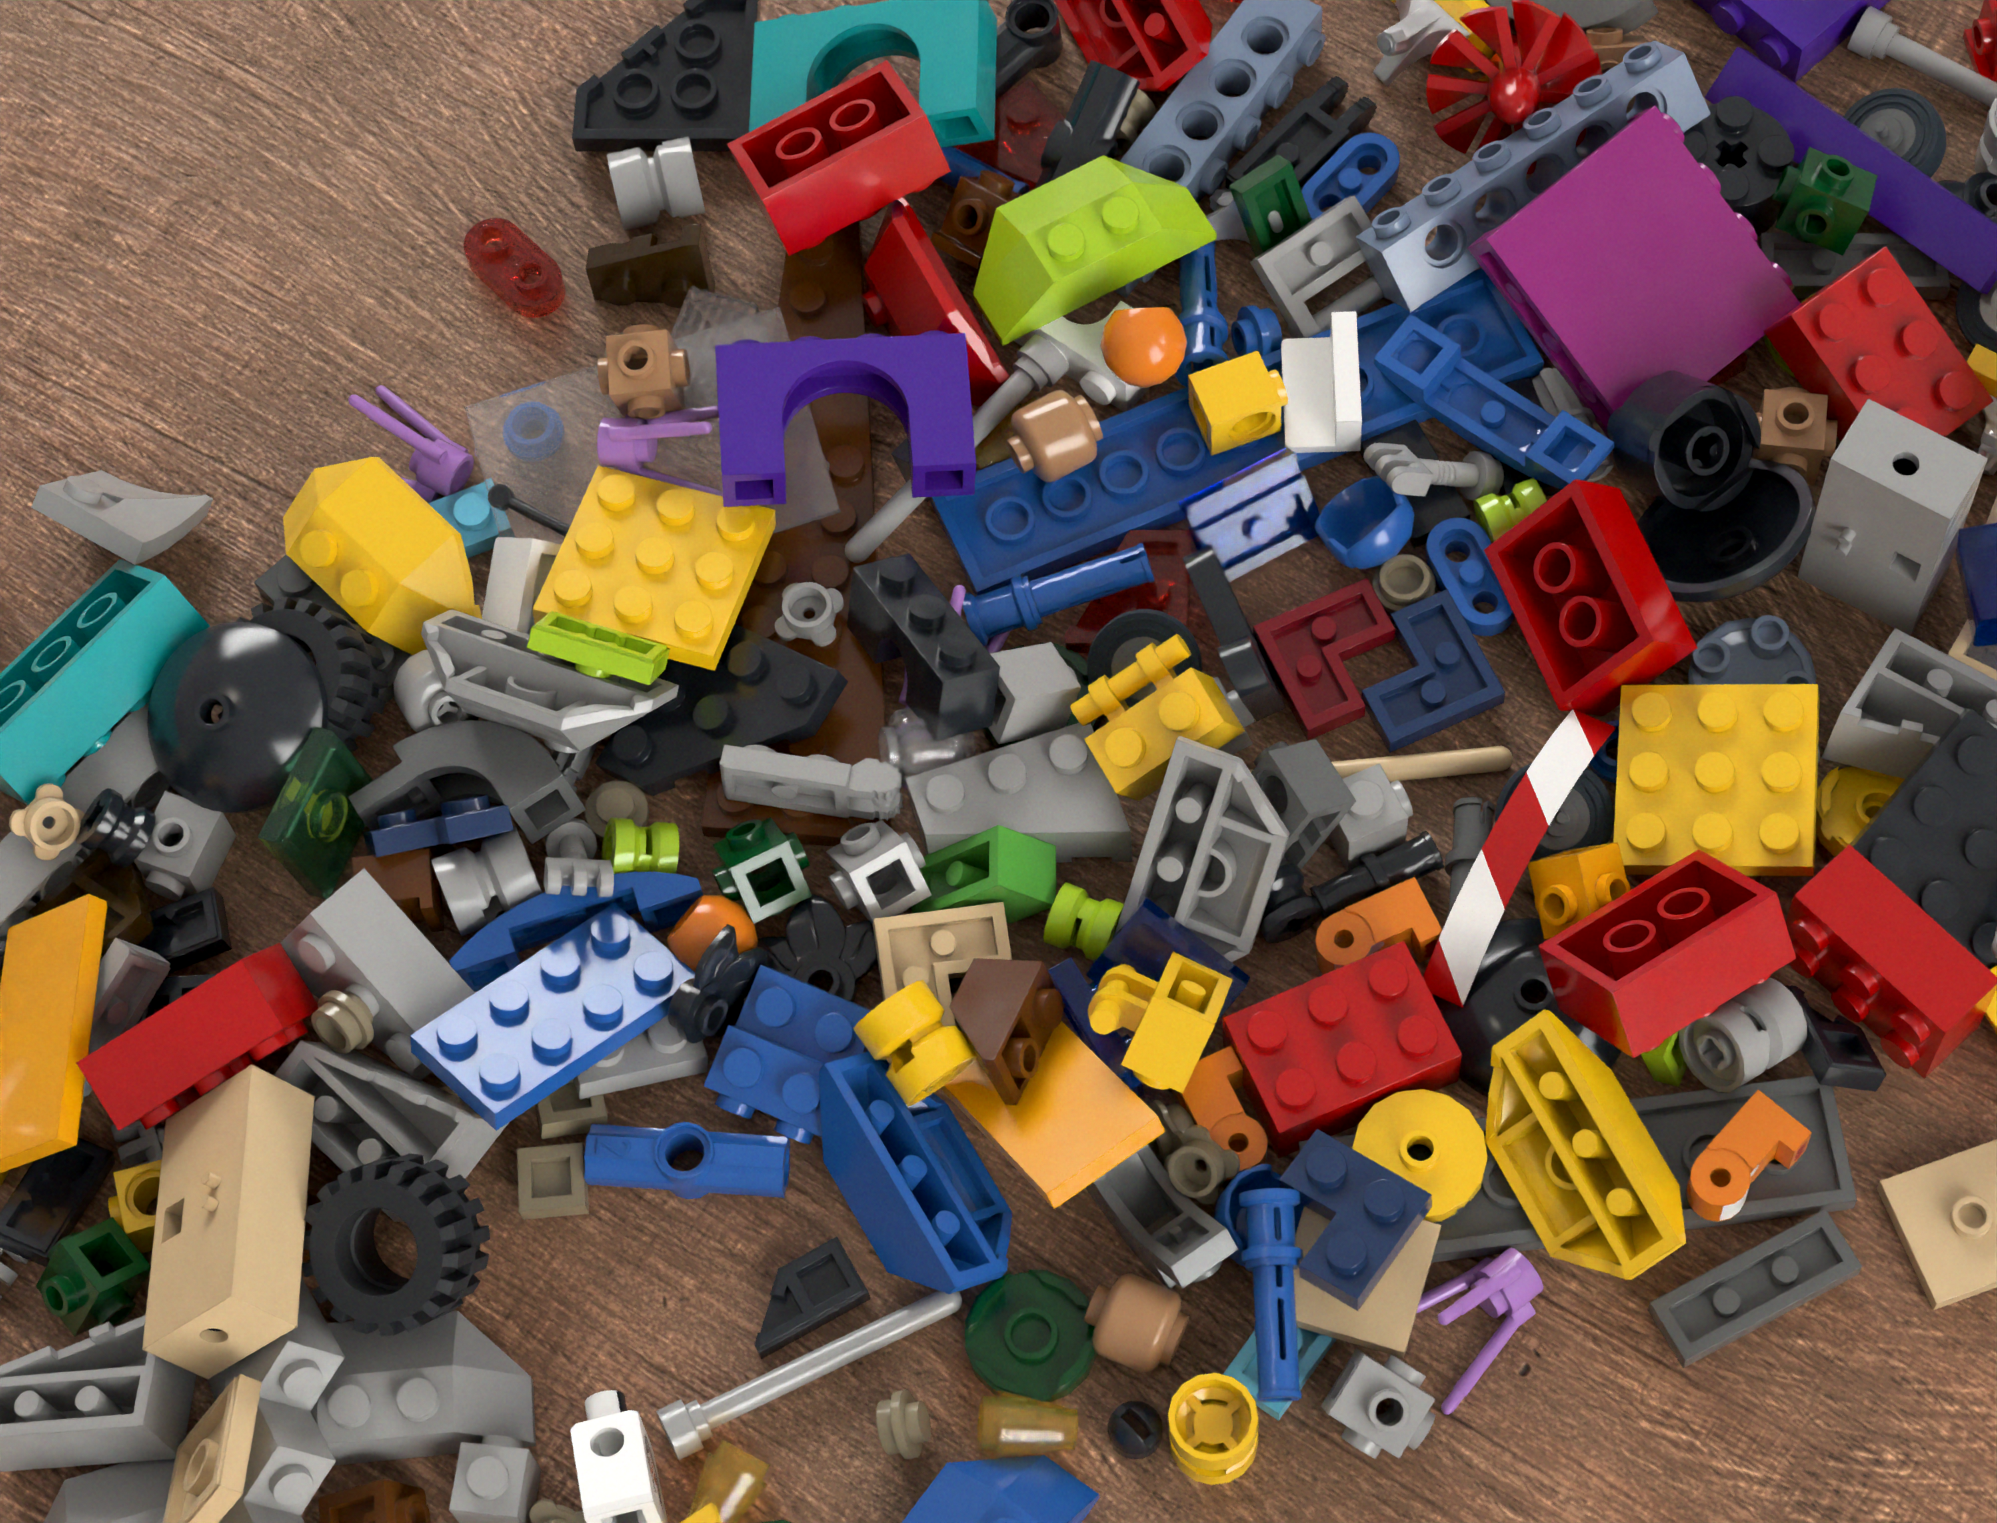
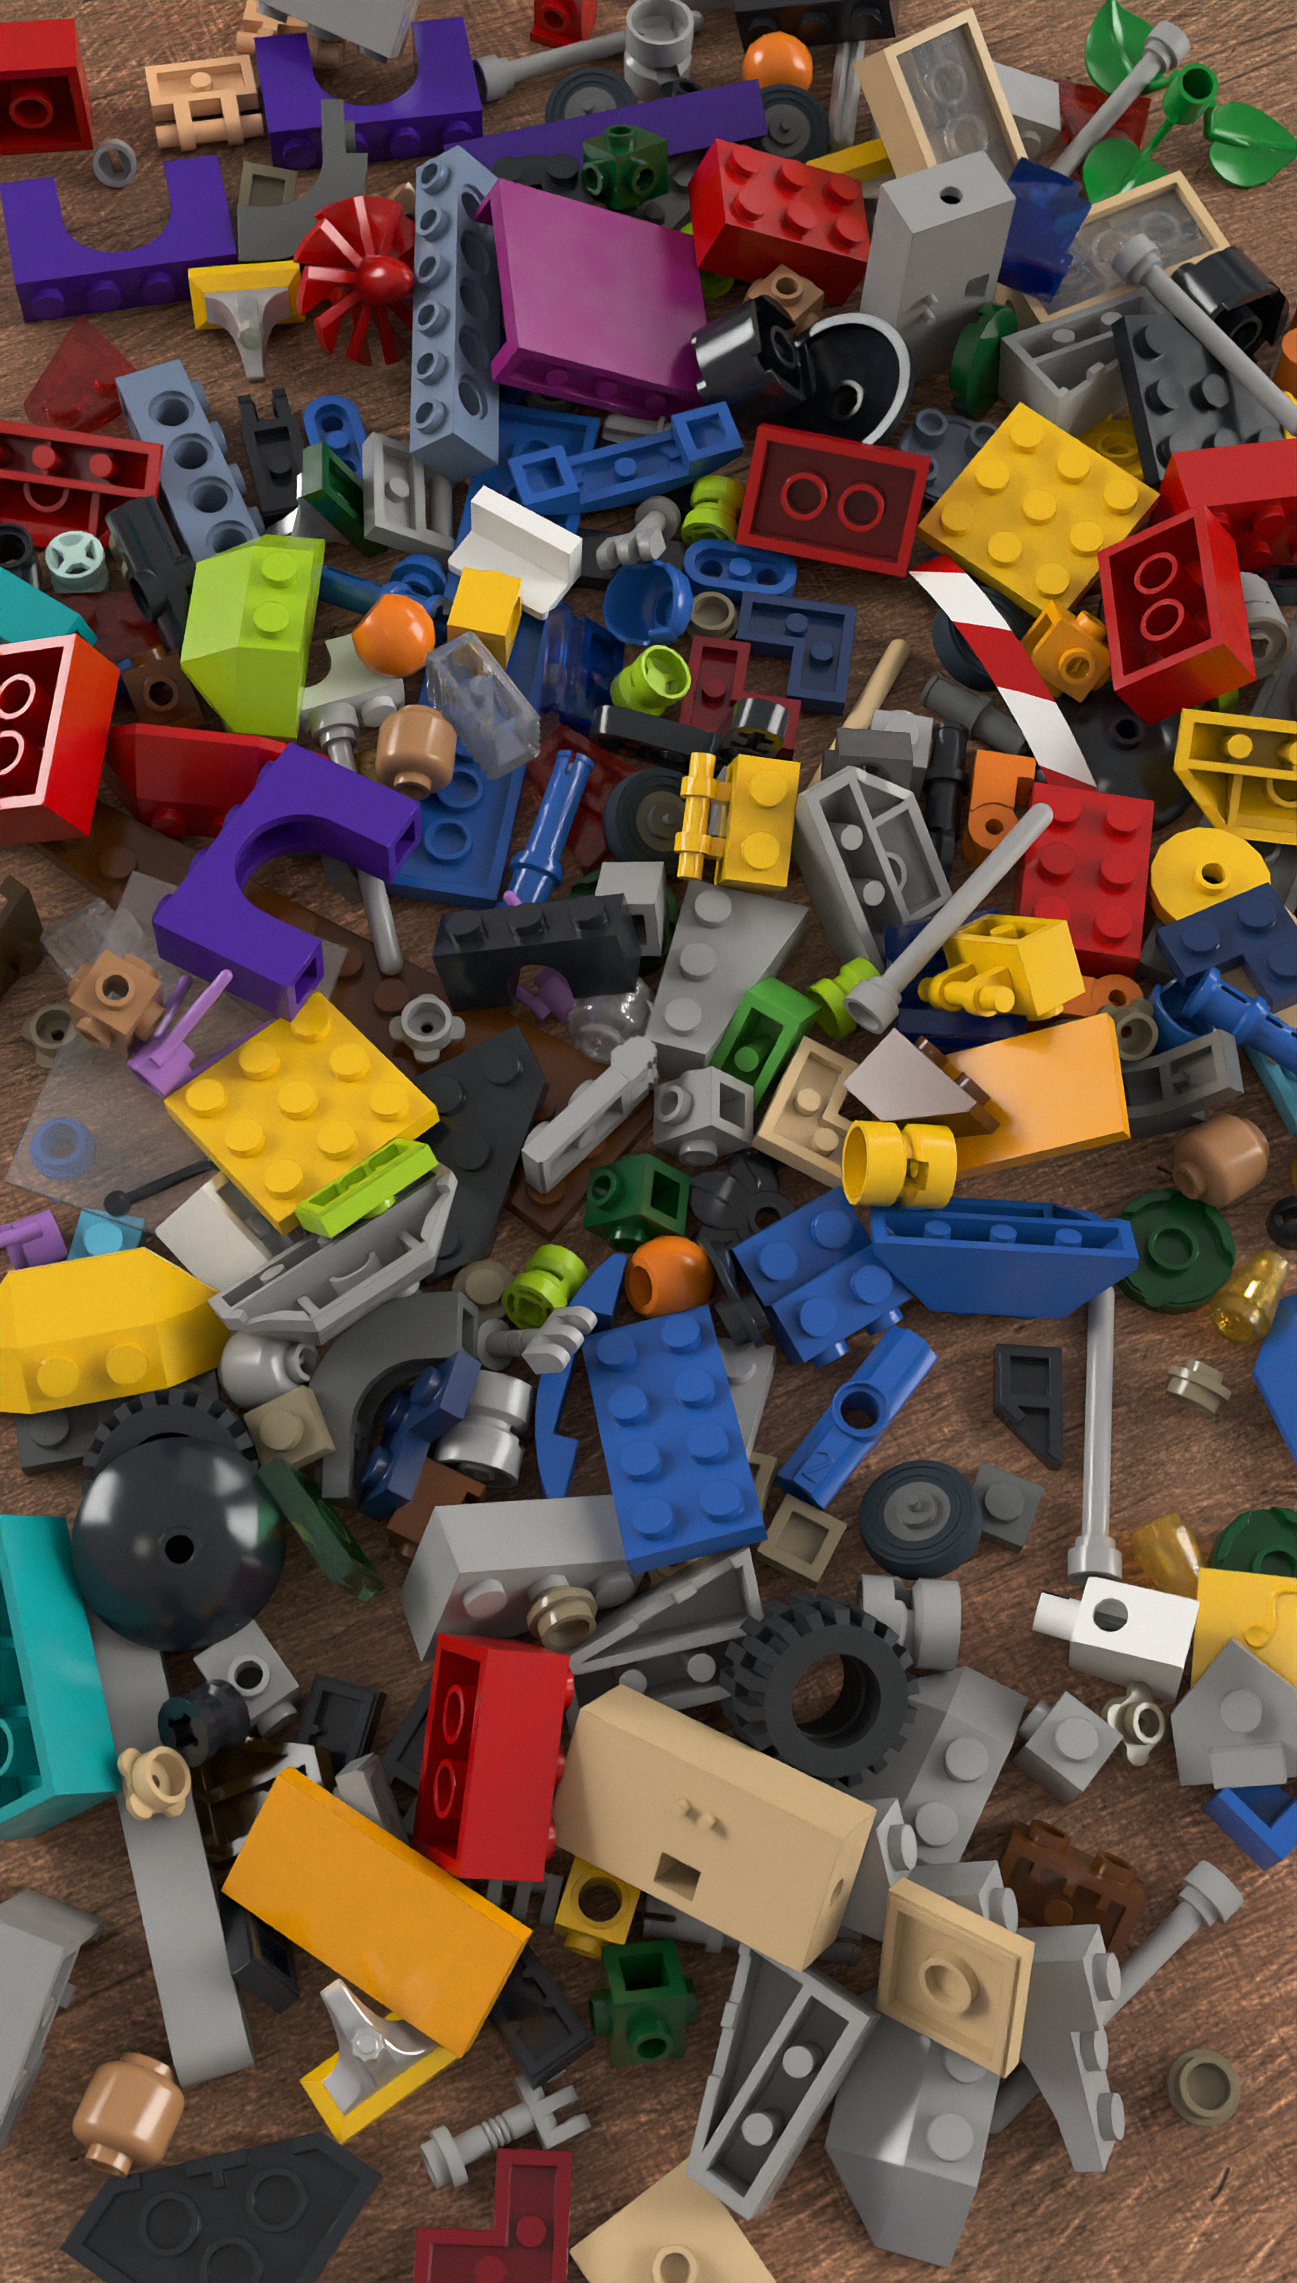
camera: 70 degrees left, 0 degrees up
(384, 737) = (290, 1428): none -> dark tan plate
(529, 1305) = (921, 1615): none -> light grey wheel
(626, 1261) = (920, 1520): none -> black wheel
(689, 1326) = (1006, 1506): none -> dark grey plate
(1063, 67) = (83, 557): none -> light aqua wheel
(1067, 934) = (876, 1001): none -> light grey piece
(1134, 454) = (482, 705): none -> clear brick
(1295, 578) = (652, 682): none -> lime wheel
(1855, 624) = (977, 358): none -> dark green tile

